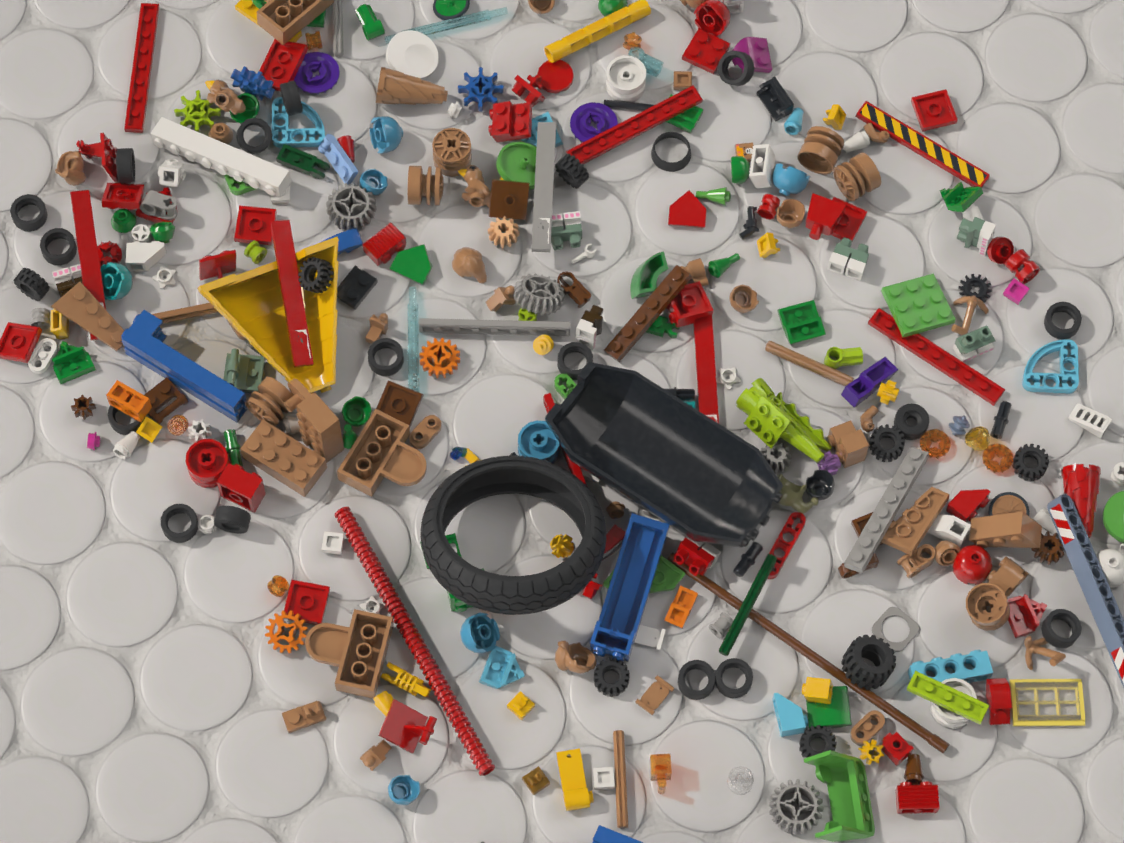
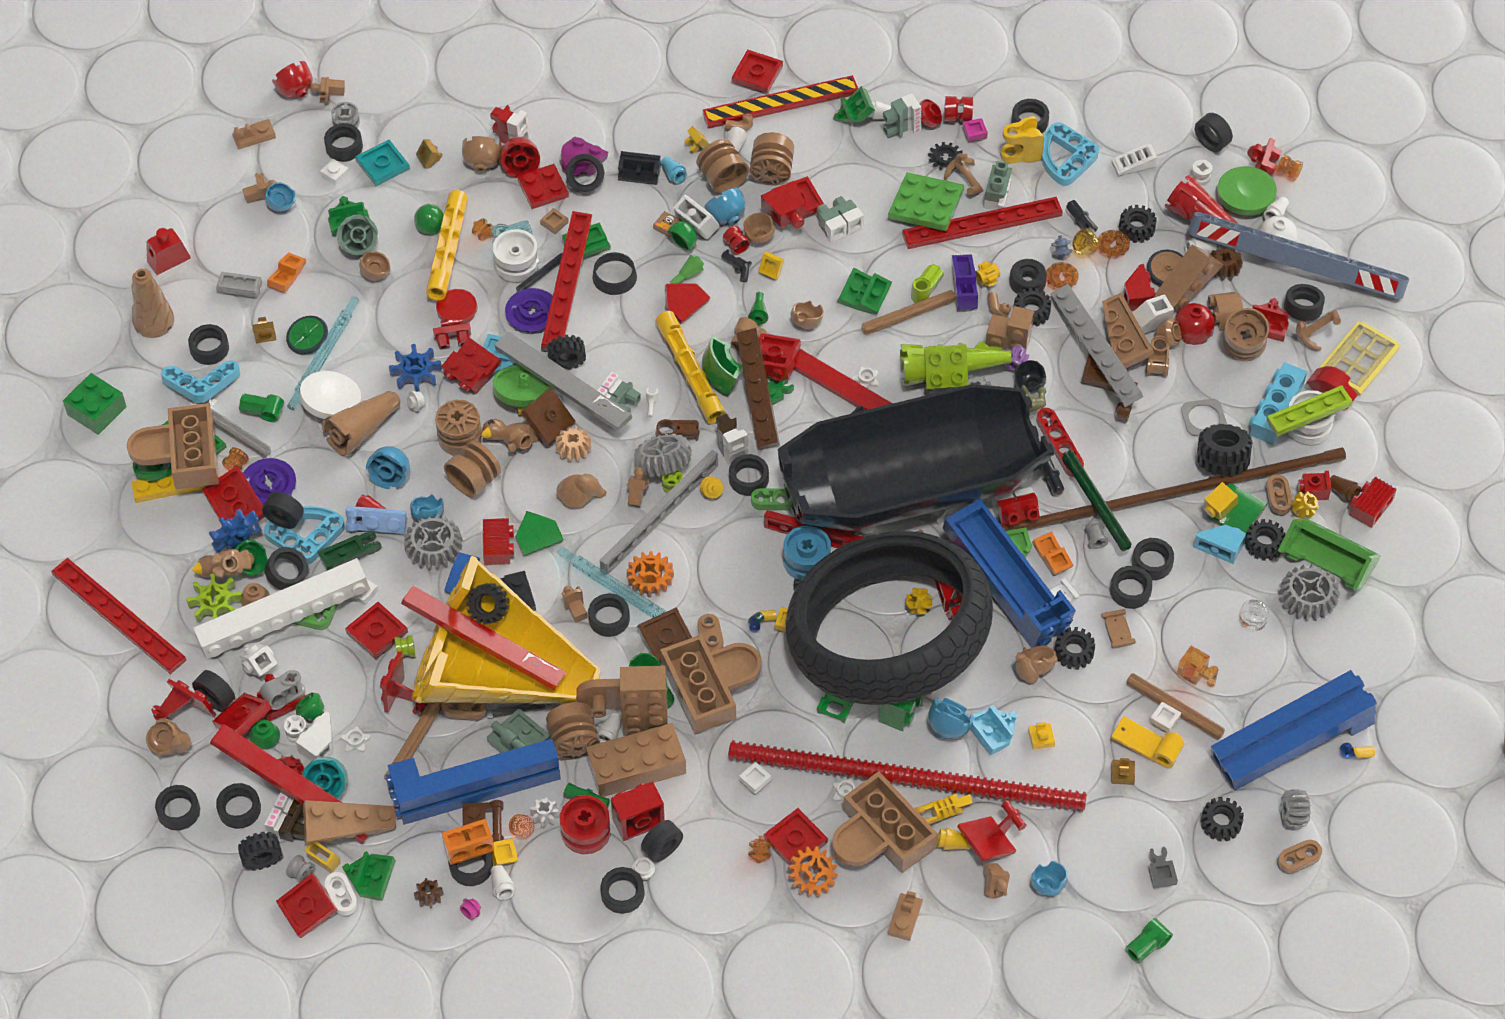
camera: 50 degrees left, 10 degrees down
(632, 258) = (685, 357): none -> yellow piece
(1034, 330) = (1026, 143): none -> yellow piece

